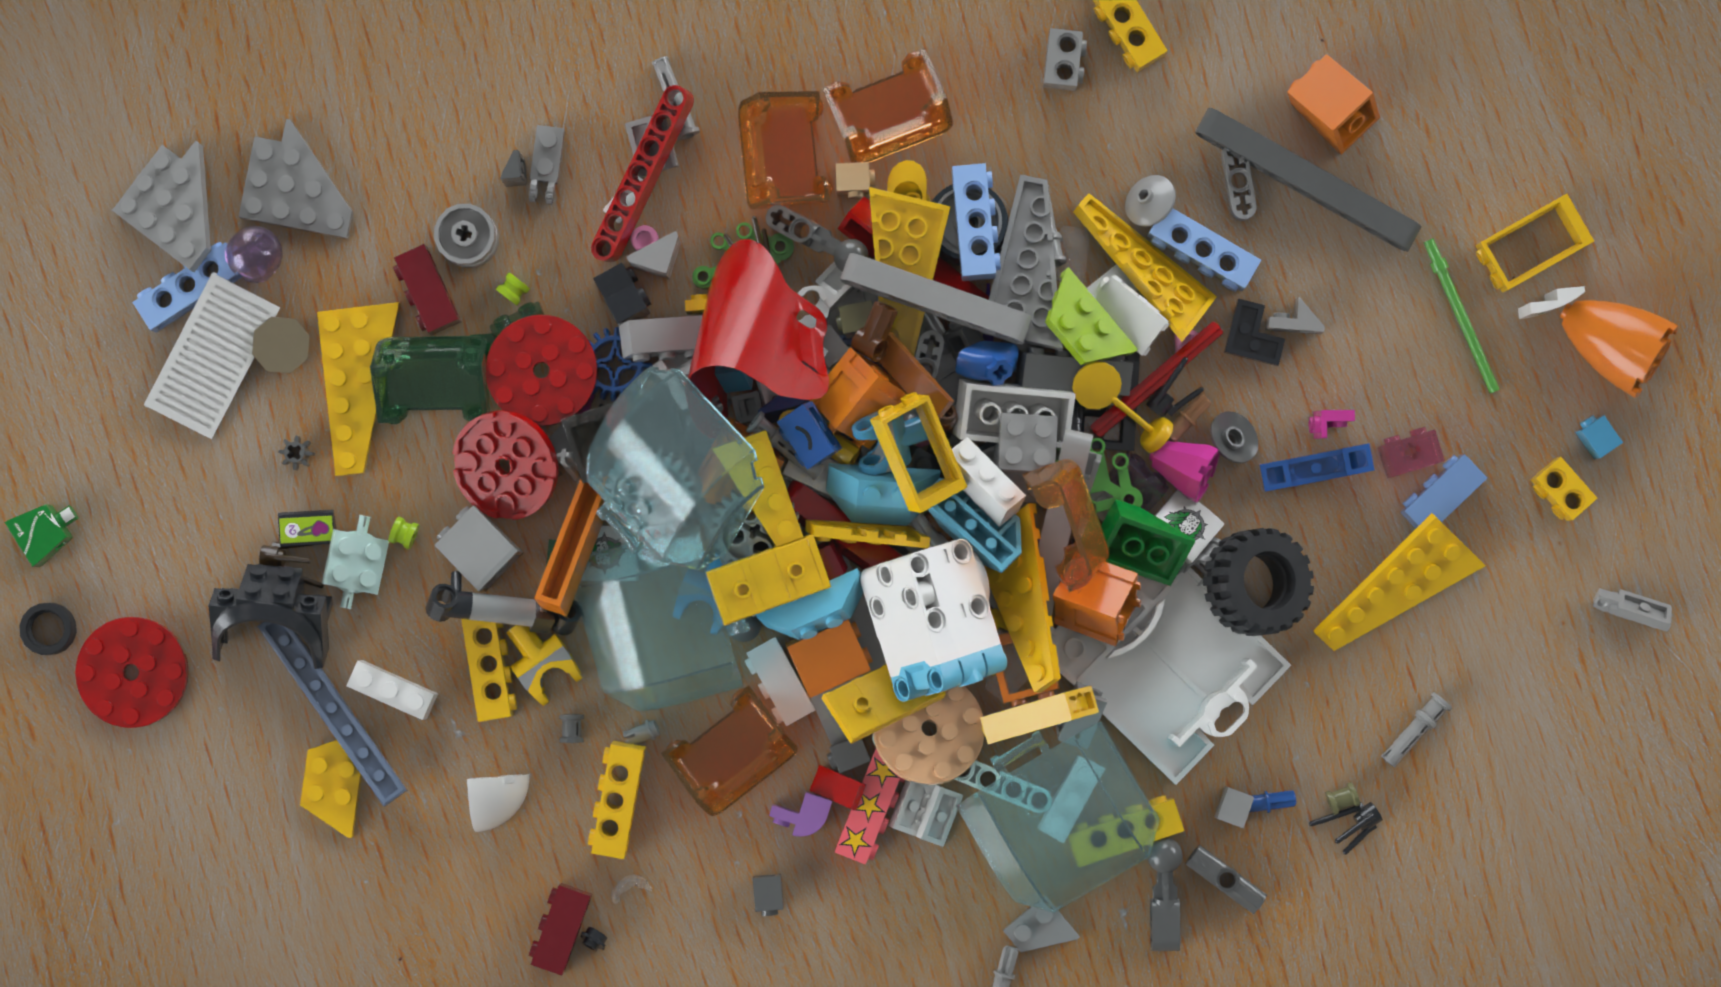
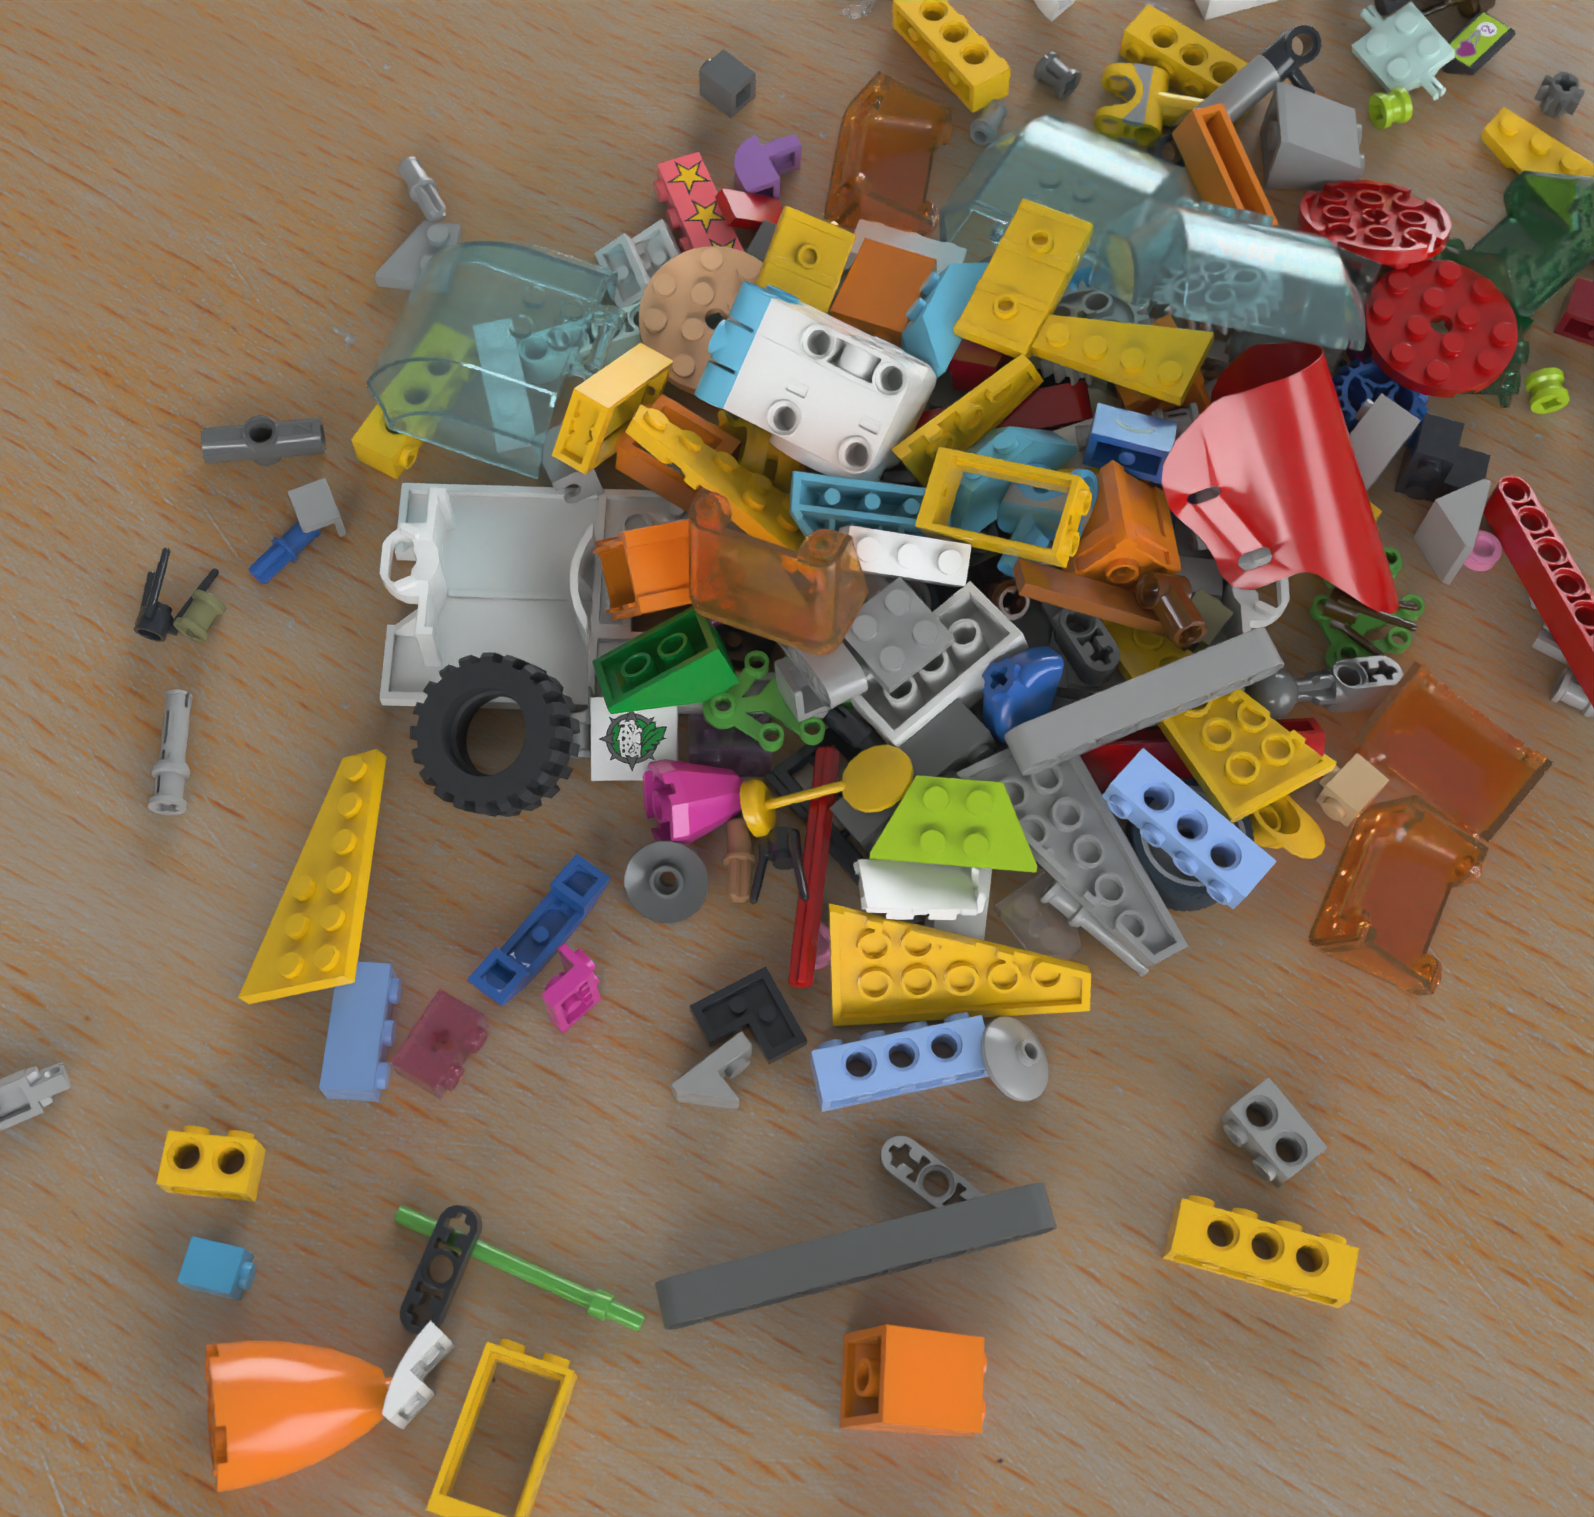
camera: 135 degrees right, 20 degrees down
(1165, 904) = (309, 367): dark grey beam -> none
(1487, 344) = (443, 1232): none -> black beam

